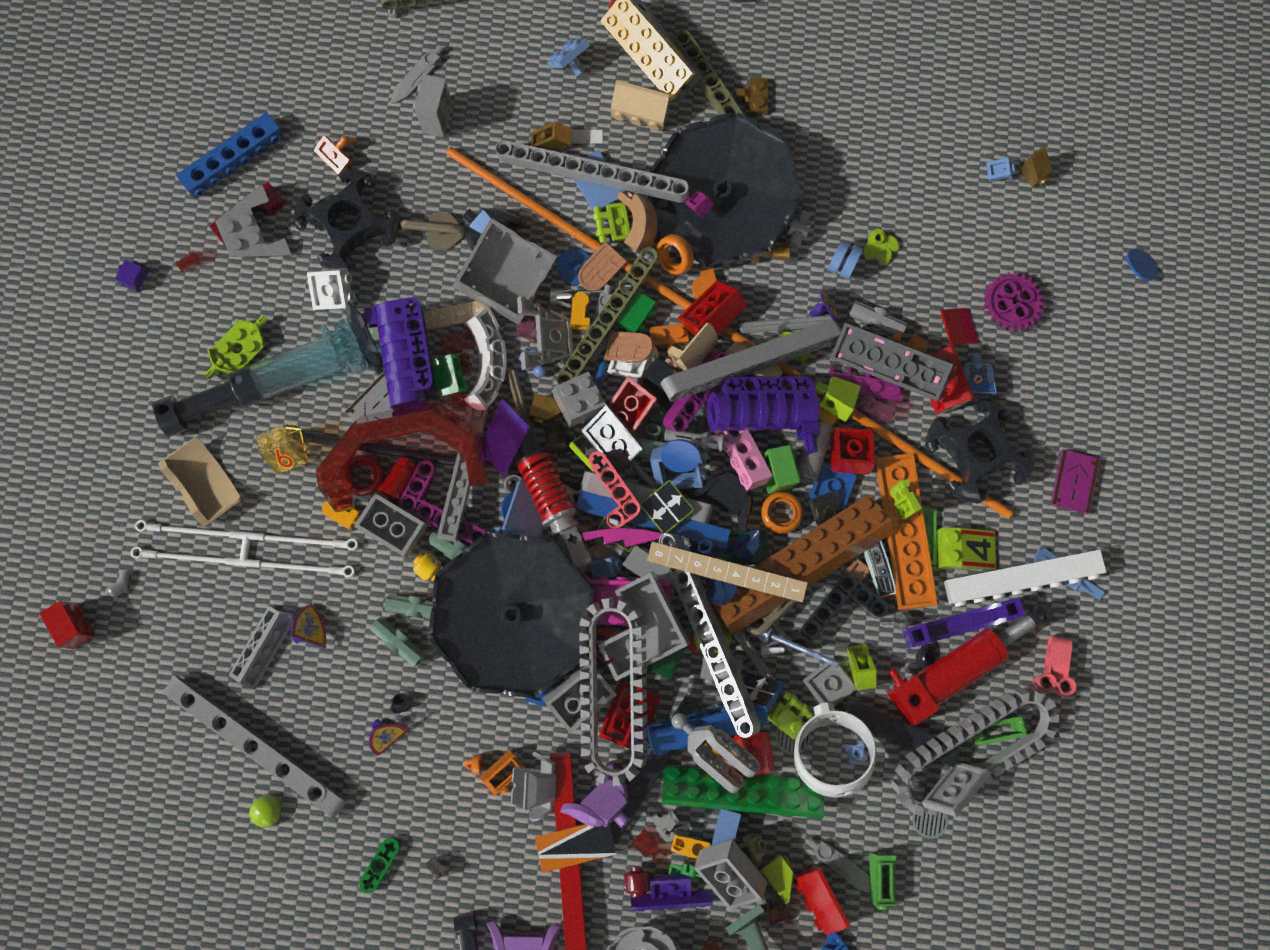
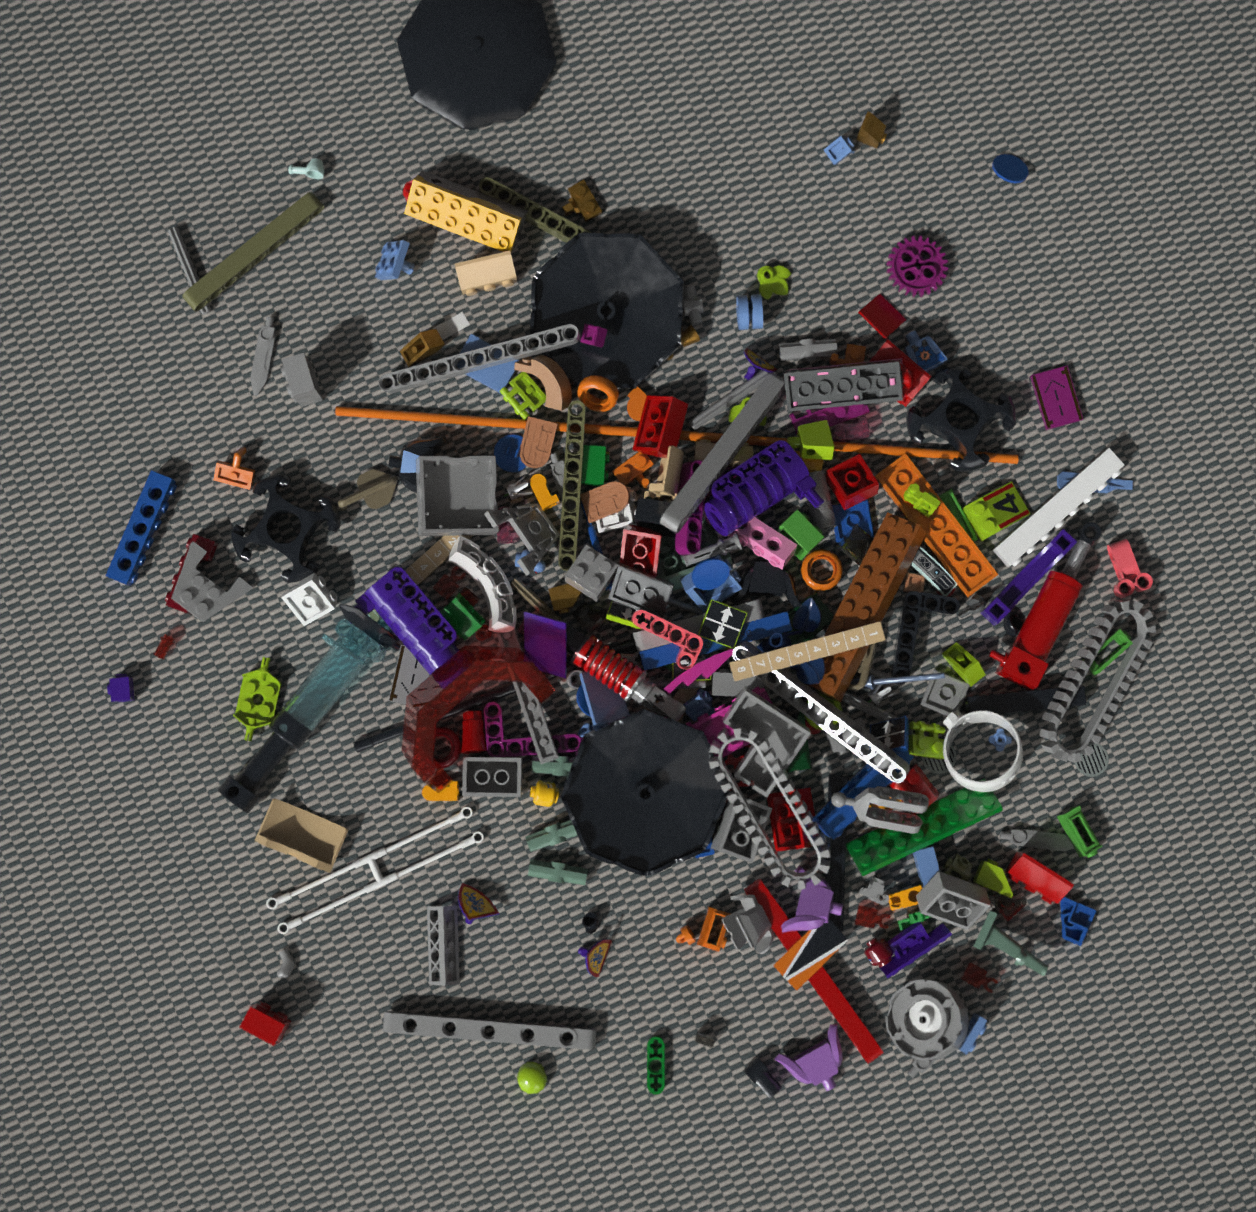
camera: 30 degrees left, 5 degrees up
(282, 448) = (356, 764): clear yellow slope -> none
(956, 789) = (1098, 721): light grey tile -> none

